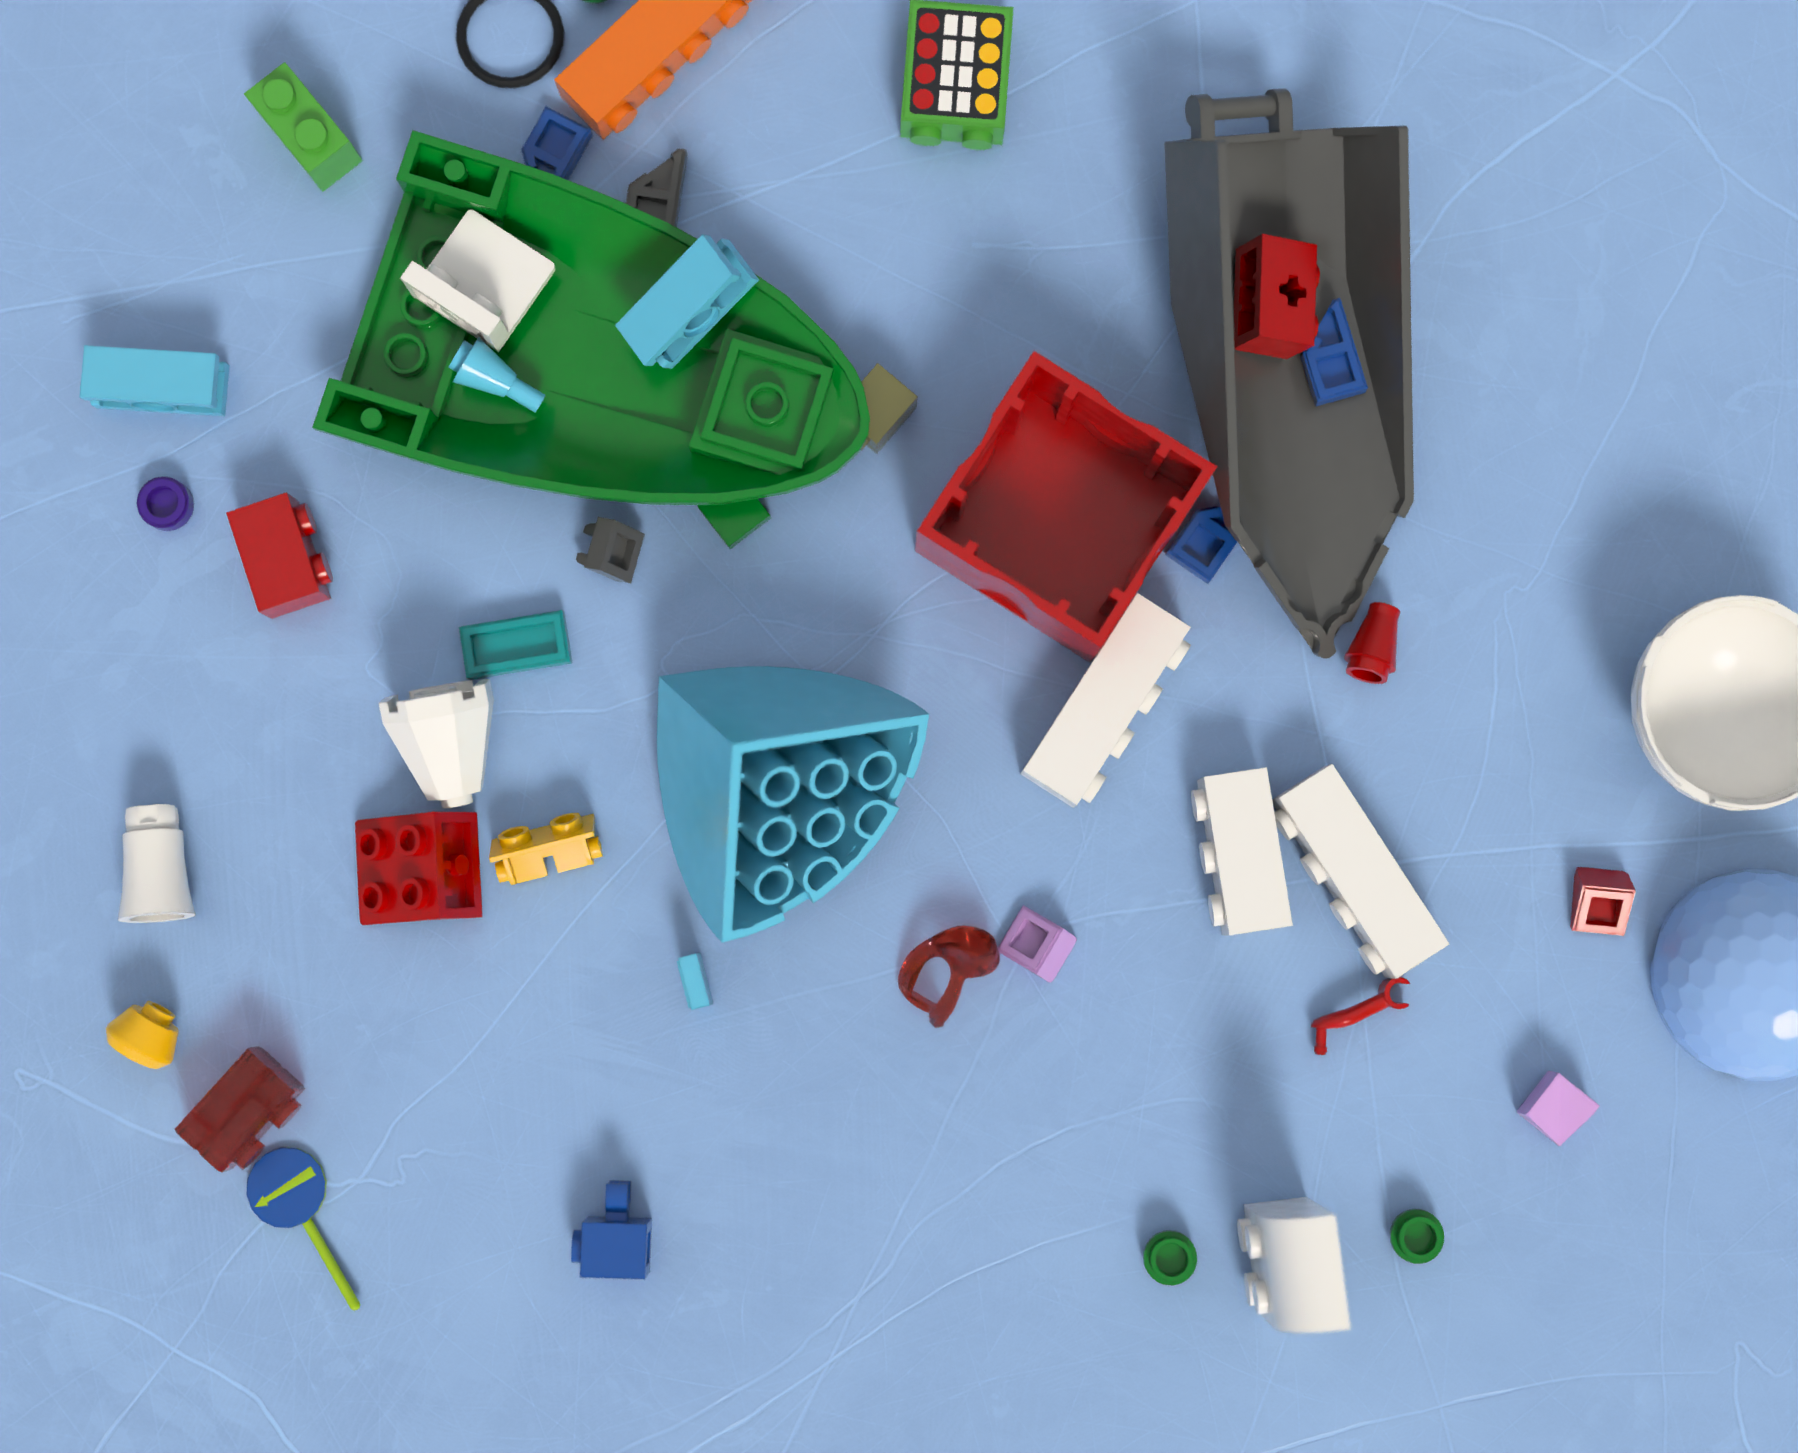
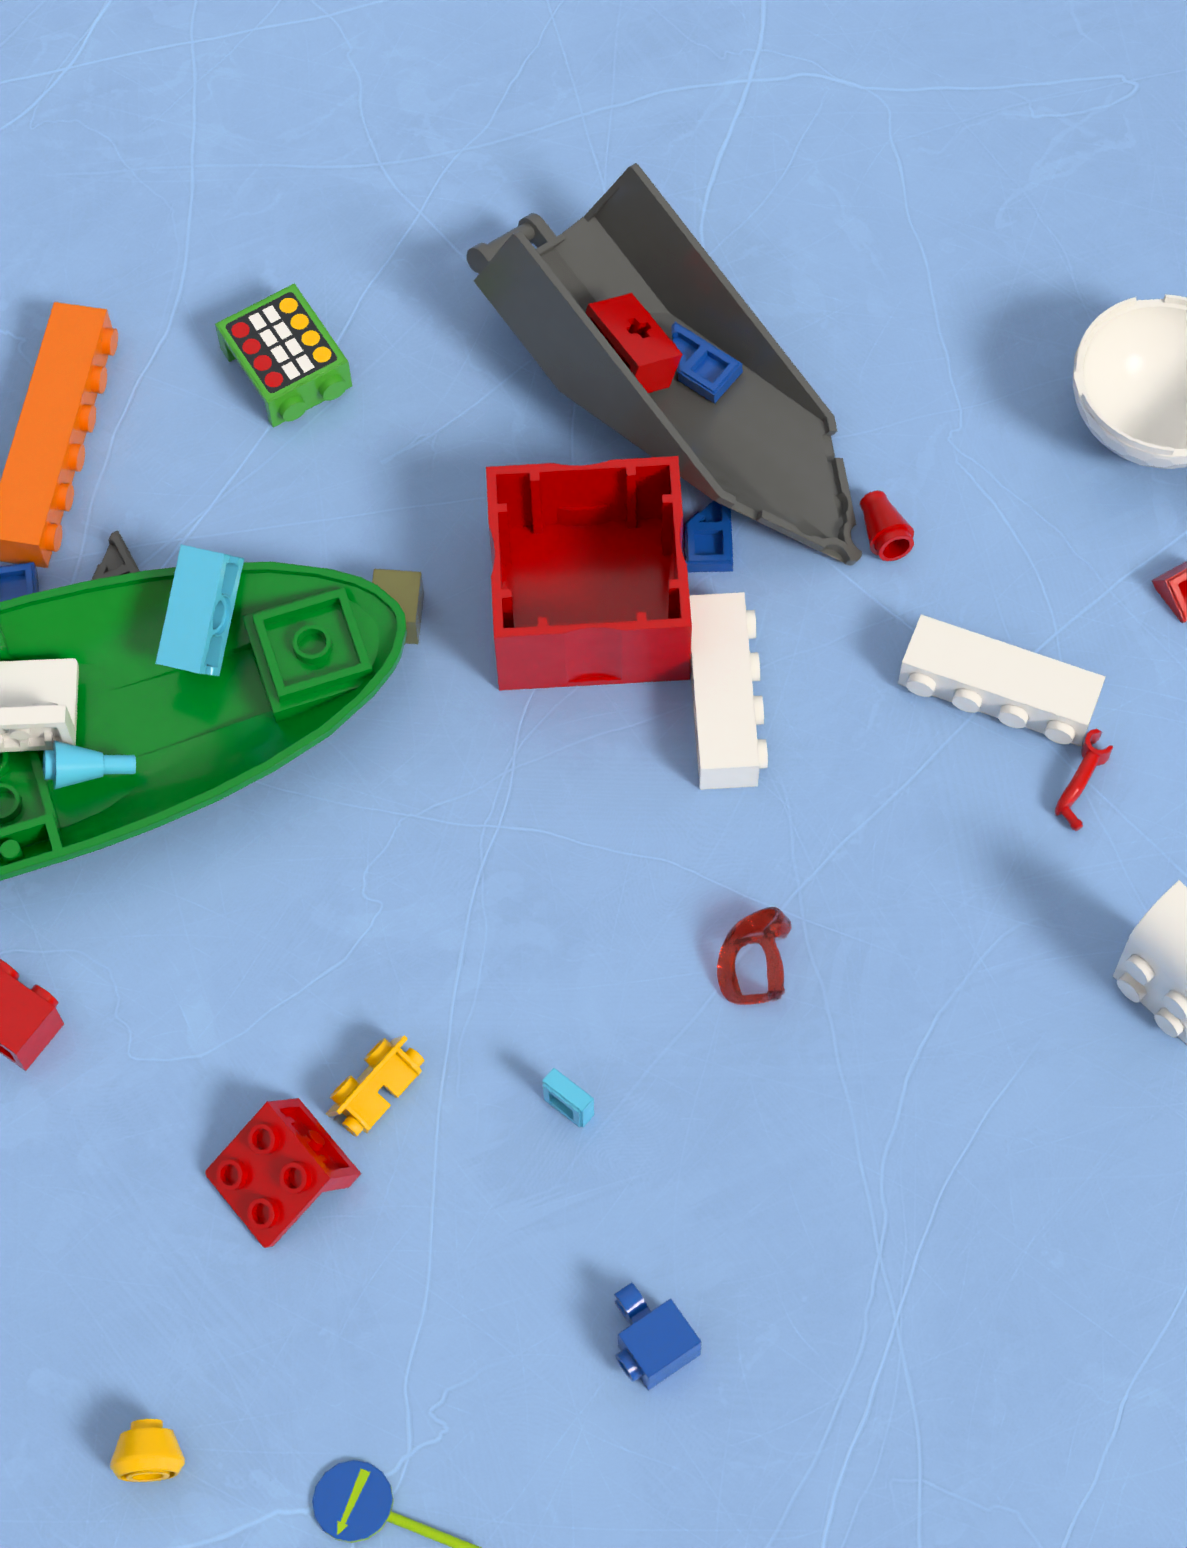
camera: 30 degrees left, 20 degrees down
(154, 867) = (64, 1315): white plant -> none
(241, 1110) = (271, 1456): clear red brick -> none
(443, 737) = (232, 1049): white cone -> none
(515, 645) = (239, 956): teal tile -> none
(612, 549) = (267, 833): dark grey tile -> none
(735, 520) = (342, 752): green tile -> none
(777, 784) = (522, 904): medium azure brick -> none
(1037, 944) = (809, 895): lavender slope -> none
(1170, 1257) = (1090, 1048): green plate -> none
(1242, 852) = (907, 724): white brick -> none

